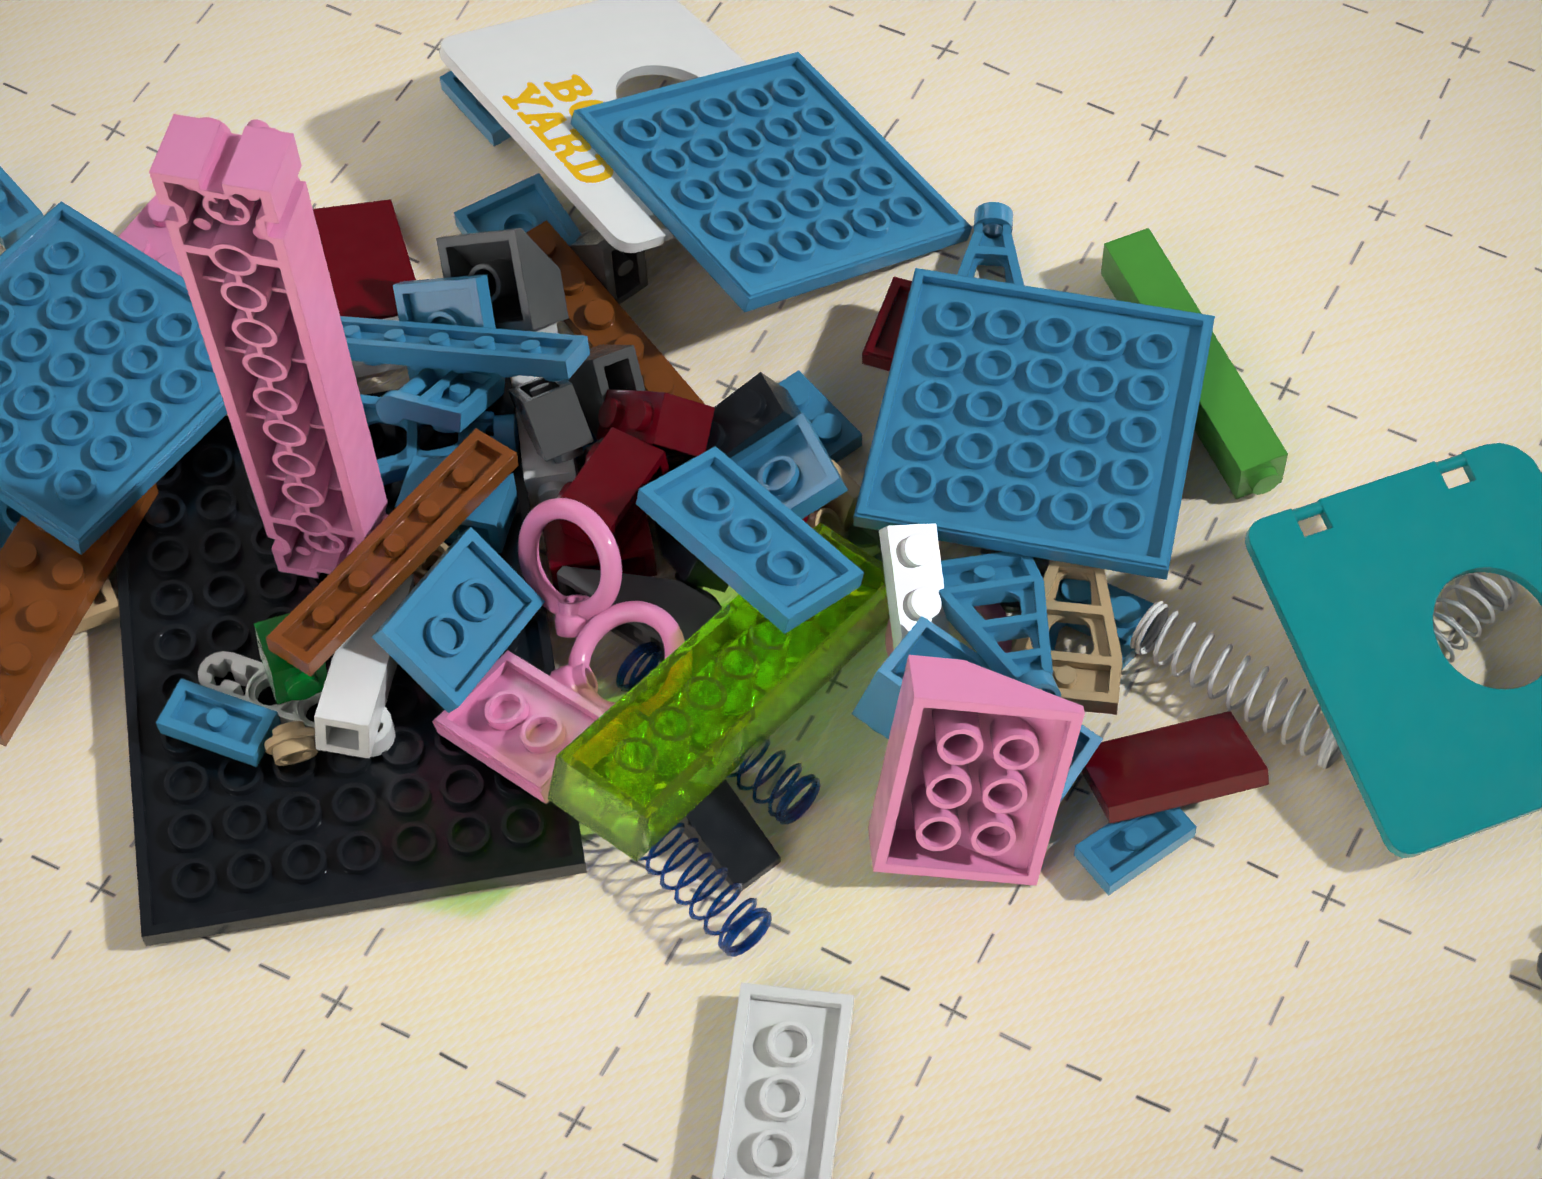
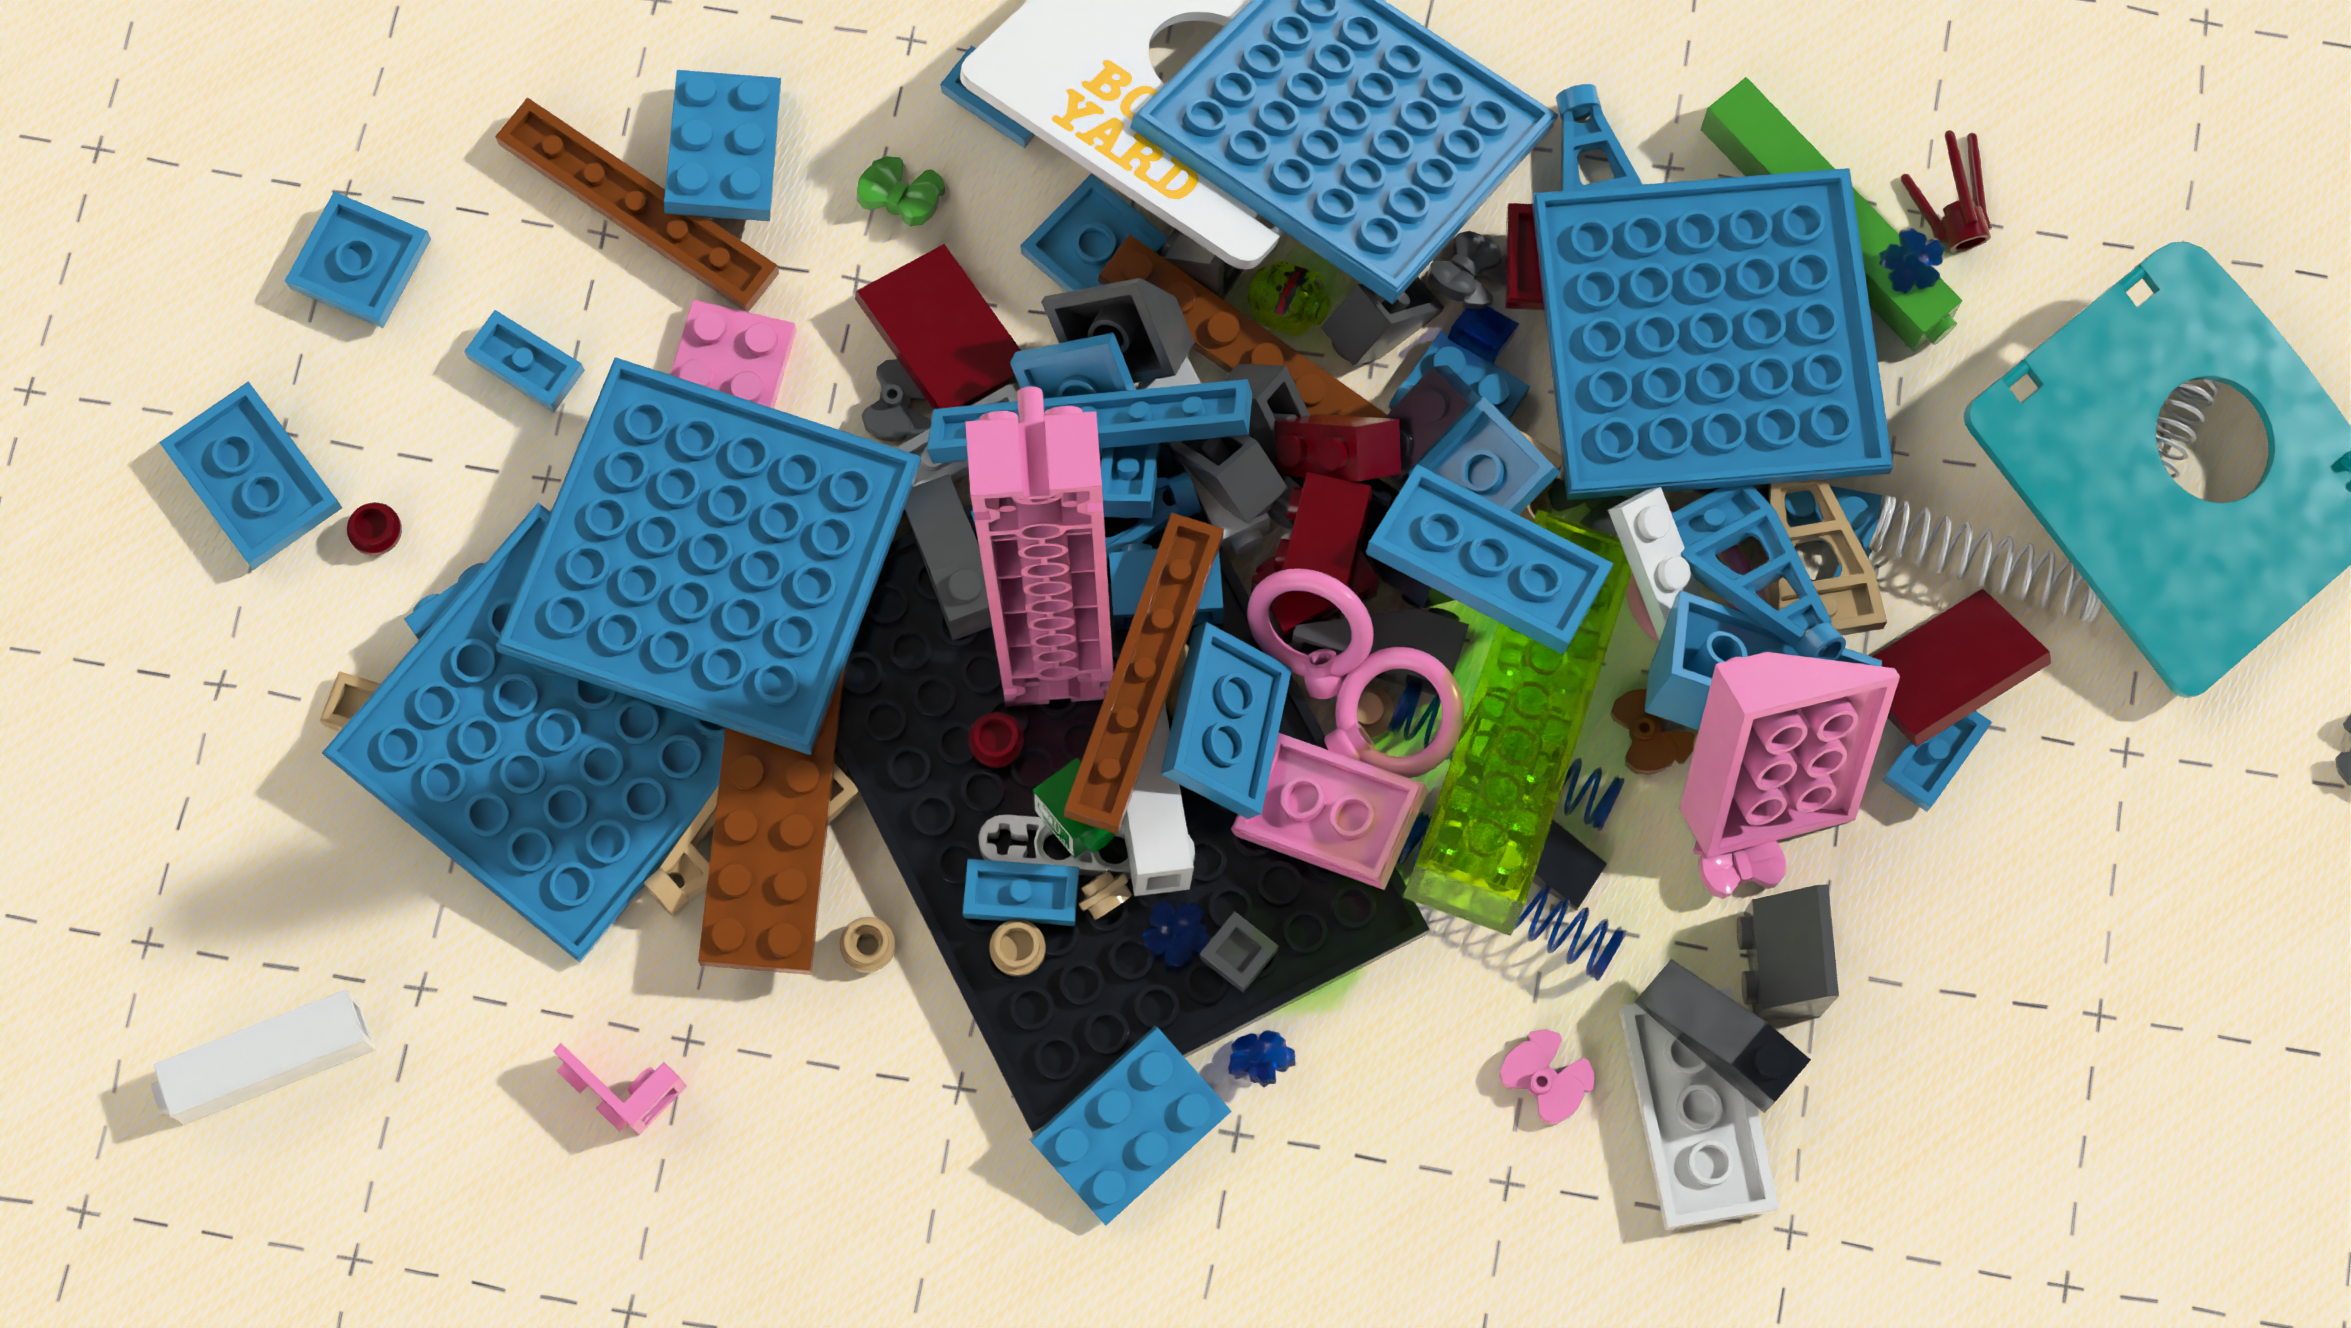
camera: 20 degrees left, 15 degrees up
(67, 727) = (863, 928): none -> tan plate
(119, 77) = (636, 204): none -> dark orange plate
(195, 769) = (1017, 947): none -> tan plate
(233, 957) = (1130, 1125): none -> dark azure plate
(238, 76) = (722, 145): none -> dark azure plate
(254, 591) = (996, 740): none -> dark red plate
(347, 799) = (1176, 932): none -> clear blue plant
(363, 146) = (882, 187): none -> bright green piece
(381, 932) = (1260, 1057): none -> clear blue plant
(393, 827) = (1238, 952): none -> dark grey plate
(606, 662) = (1374, 711): none -> tan plate
(651, 1050) = (1556, 1093): none -> bright pink piece
(670, 309) = (1288, 297): none -> clear neon green head
(742, 344) = (1370, 326): none -> dark grey slope
(828, 1034) = (1723, 1034): none -> black slope
(833, 332) = (1473, 257): none -> dark grey piece
(836, 379) = (1483, 332): none -> clear blue tile
(860, 766) = (1650, 747): none -> dark orange piece
(918, 978) = (1789, 954): none -> dark grey slope
(921, 894) = (1760, 863): none -> bright pink piece
(1247, 404) = (1912, 261): none -> plant
(1317, 400) = (1965, 220): none -> dark red plant

